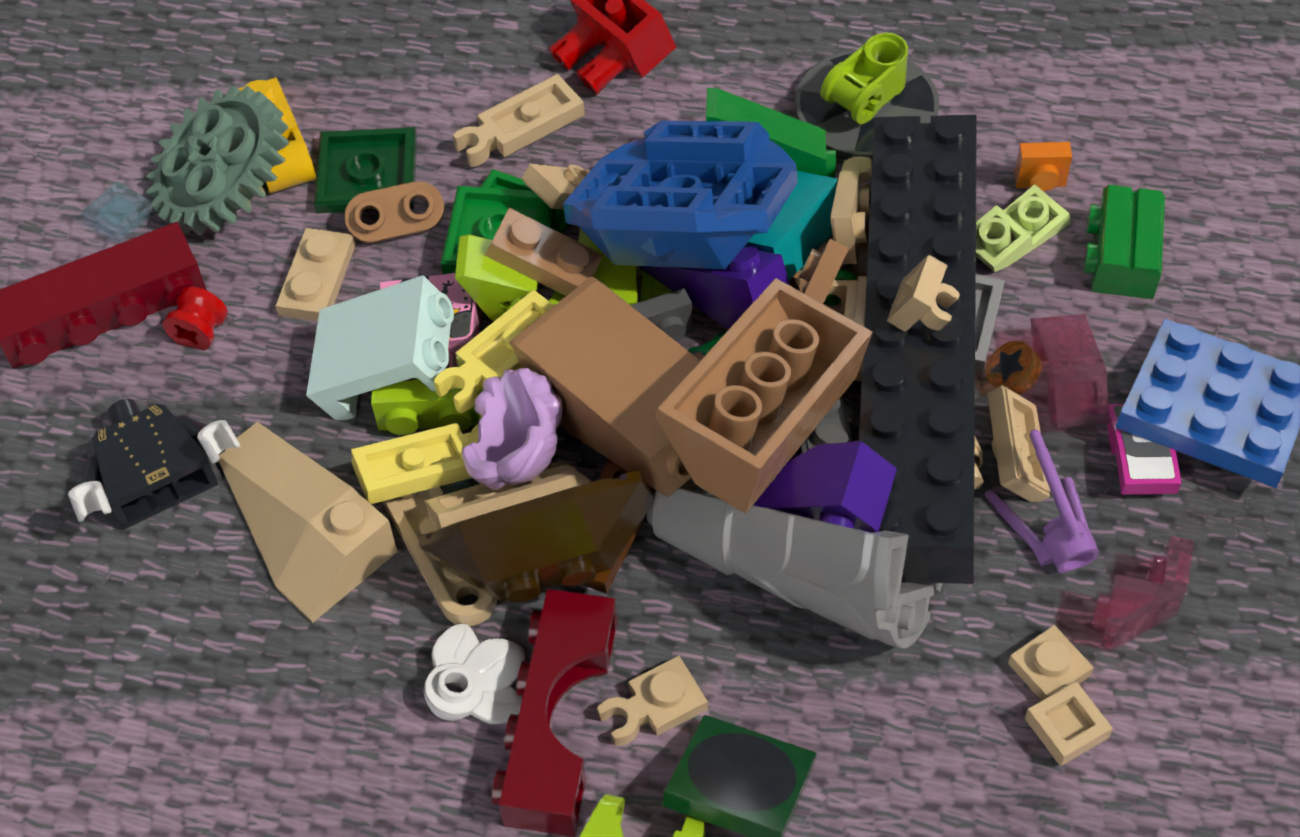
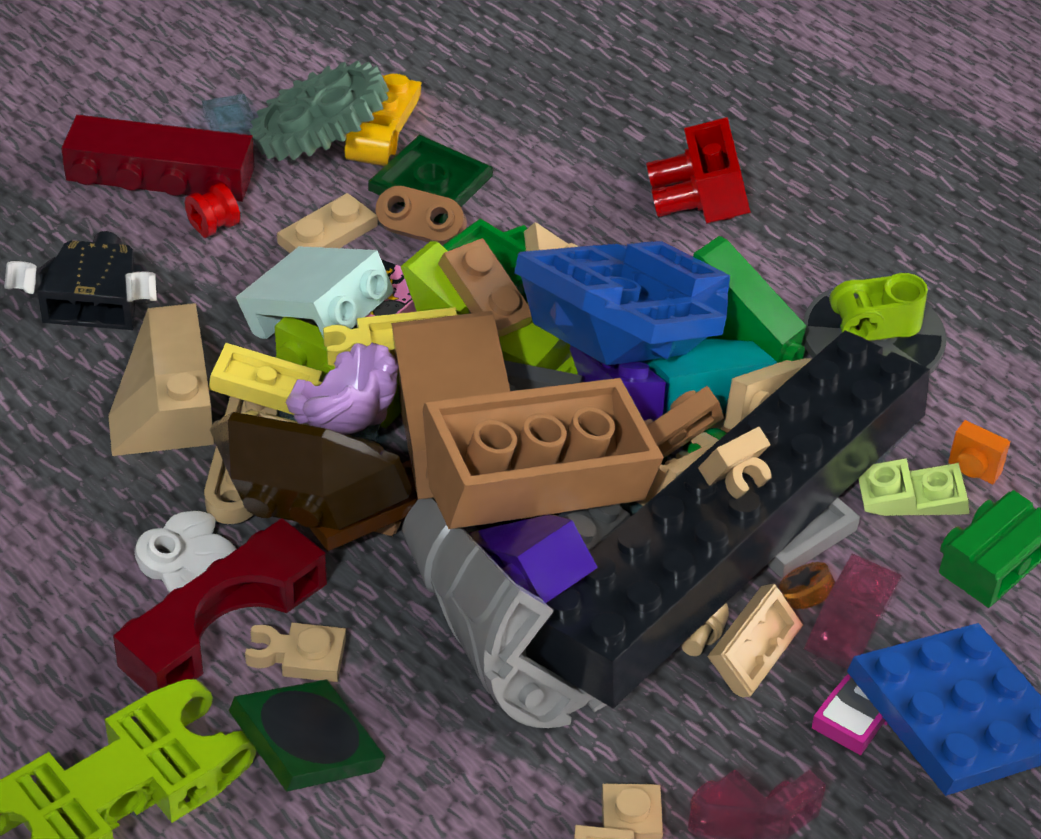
camera: 30 degrees right, 10 degrees down
(520, 120) = (576, 202): tan plate -> none
(1067, 537) = (729, 732): medium lavender plant -> none

